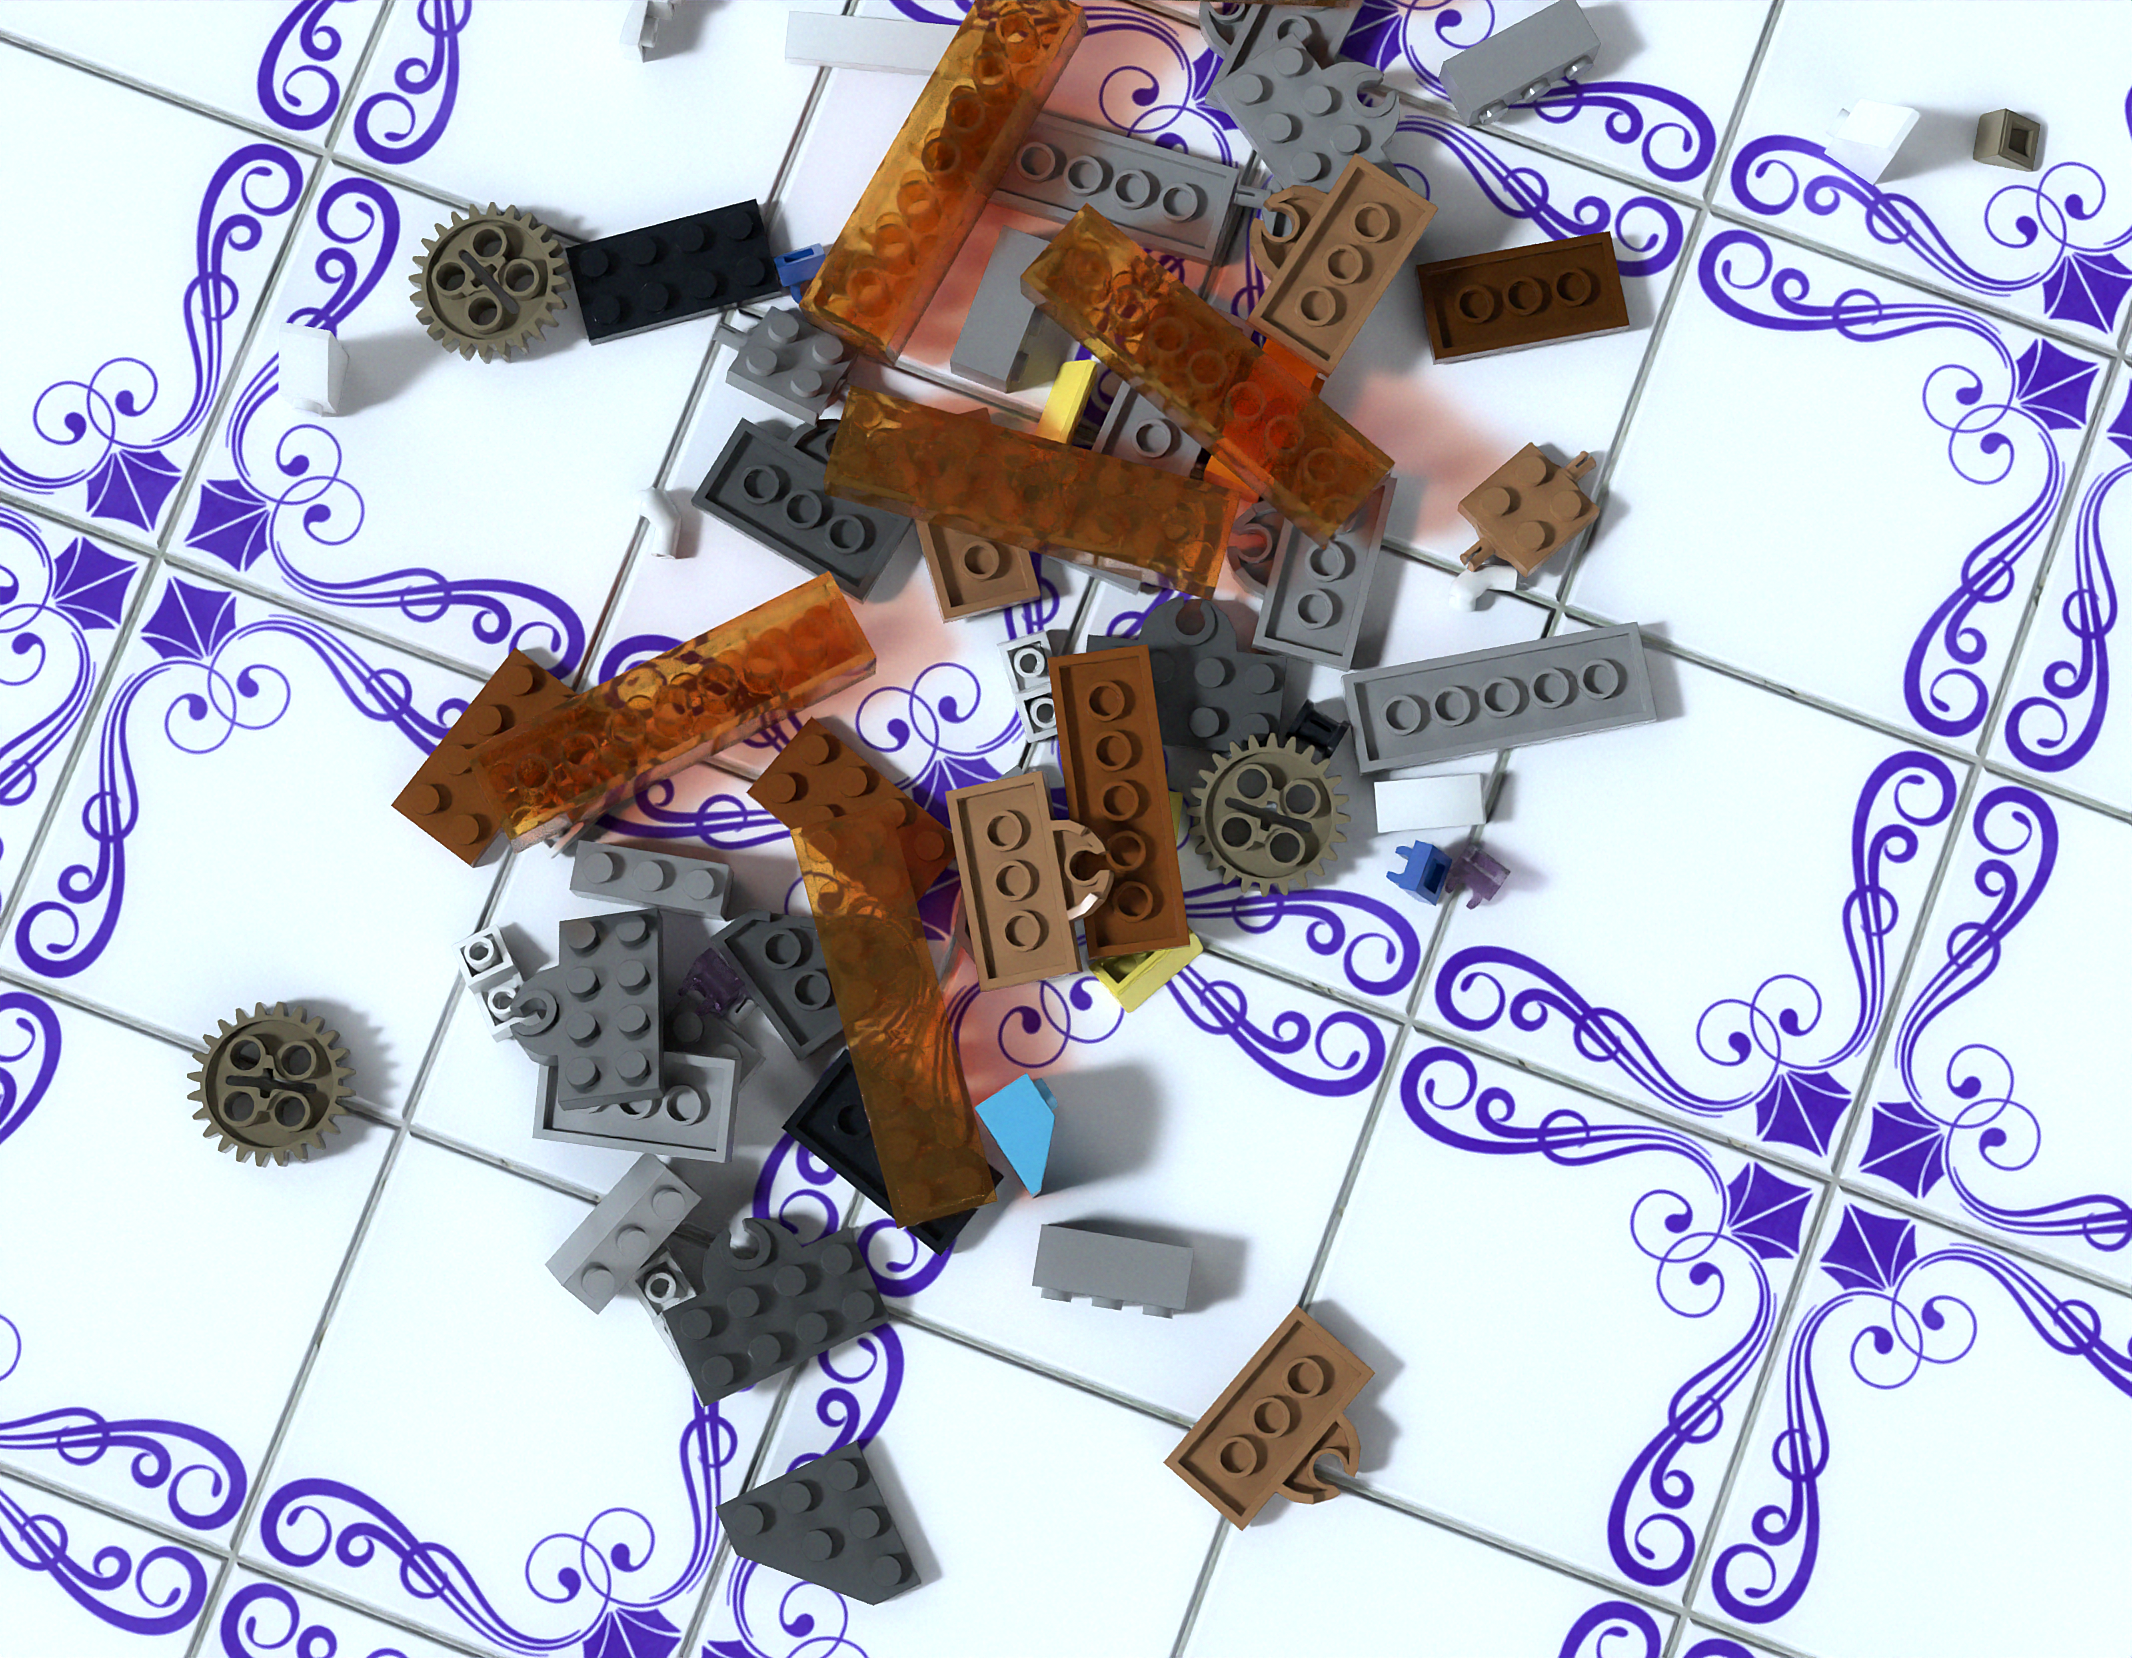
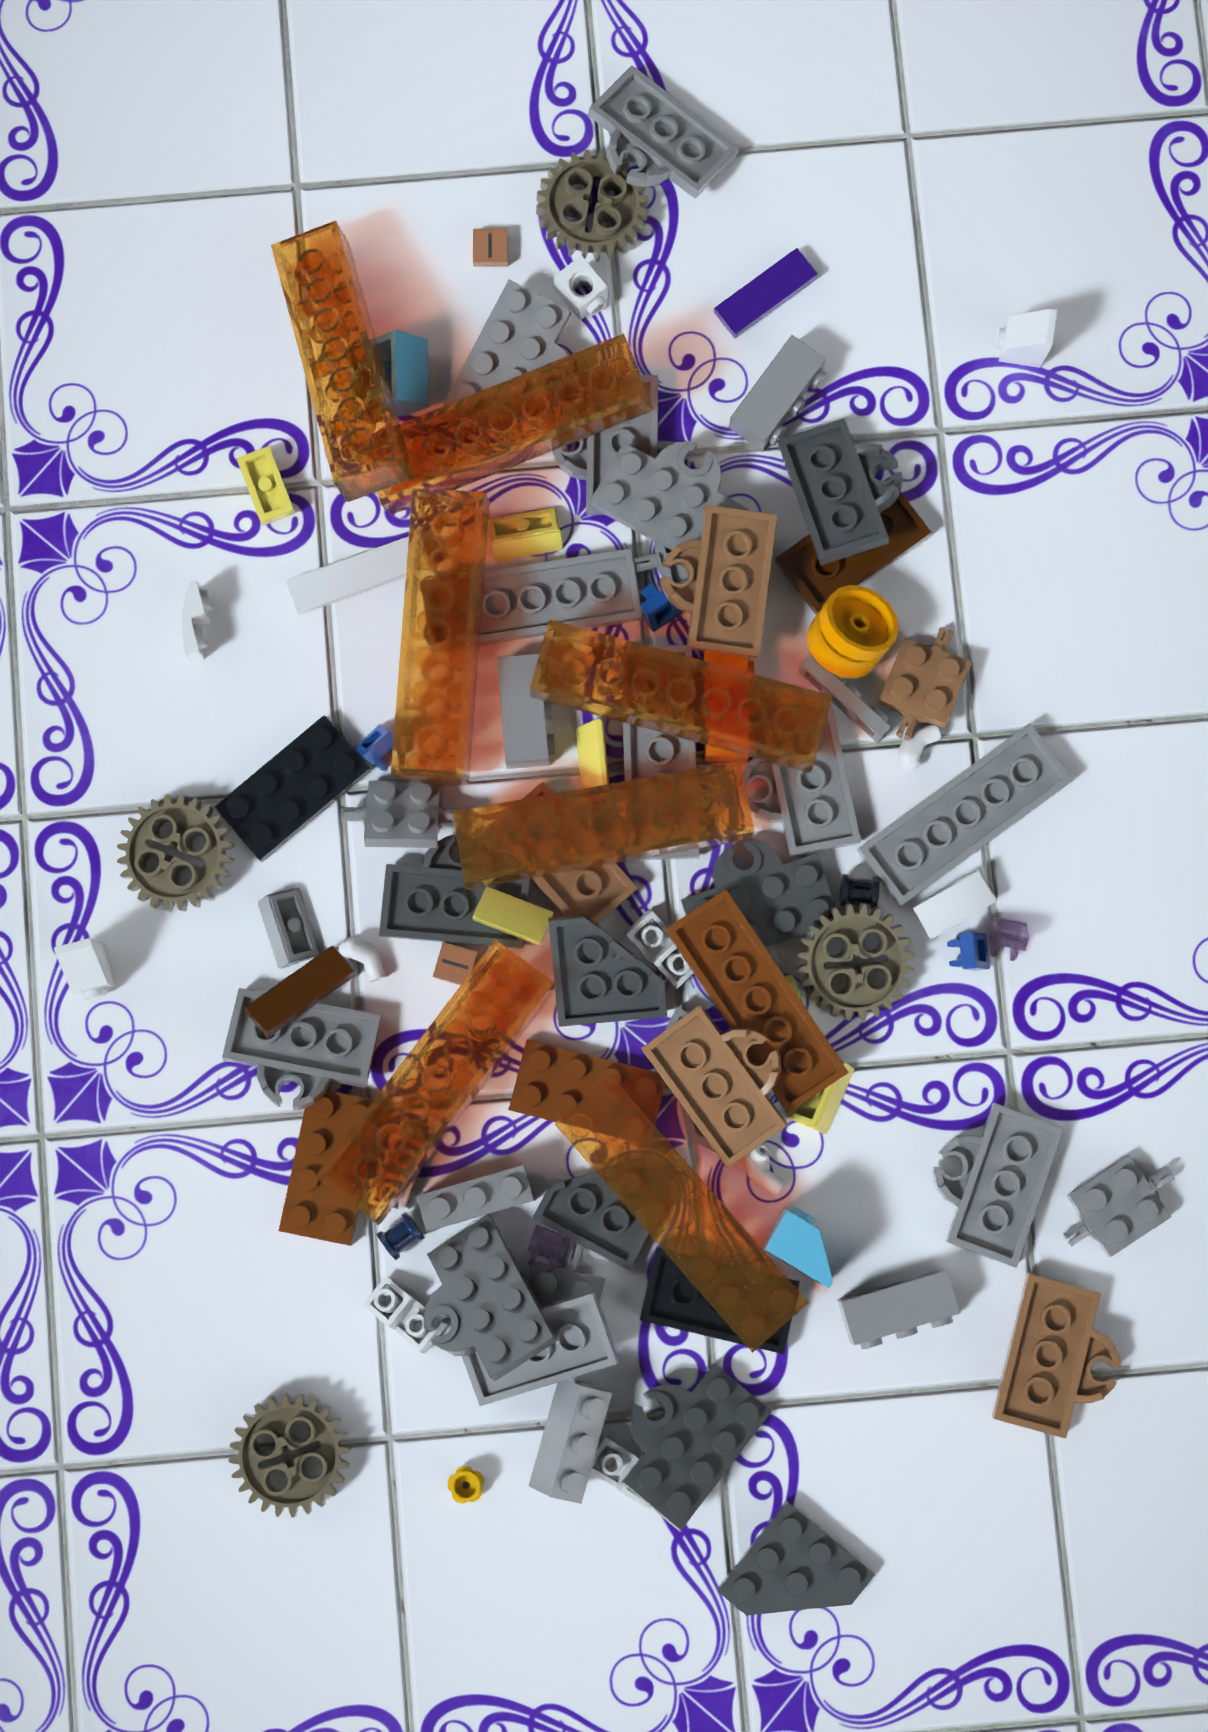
camera: 25 degrees left, 0 degrees up
(455, 1227) = (455, 1485): none -> yellow plate
(525, 893) = (400, 1236): none -> dark blue bush
(529, 589) = (311, 1050): none -> light grey plate
(559, 523) = (299, 991): none -> reddish brown tile
(585, 441) = (288, 927): none -> light grey slope
(766, 579) = (454, 963): none -> nougat tile
(867, 554) = (512, 916): none -> light yellow slope
(938, 680) = (599, 976): none -> dark grey plate
(1022, 1017) = (759, 1170): none -> white arm
(1115, 92) = (525, 534): none -> light yellow slope
(1234, 261) = (656, 608): none -> blue tile
(1314, 1175) = (998, 1183): none -> light grey plate
(1418, 481) = (847, 699): none -> light grey plate
(1453, 1278) = (1119, 1206): none -> light grey plate
(1465, 400) = (852, 631): none -> light orange wheel
(1539, 216) = (839, 489): none -> dark grey plate
(2006, 140) = (1111, 299): dark tan slope -> none

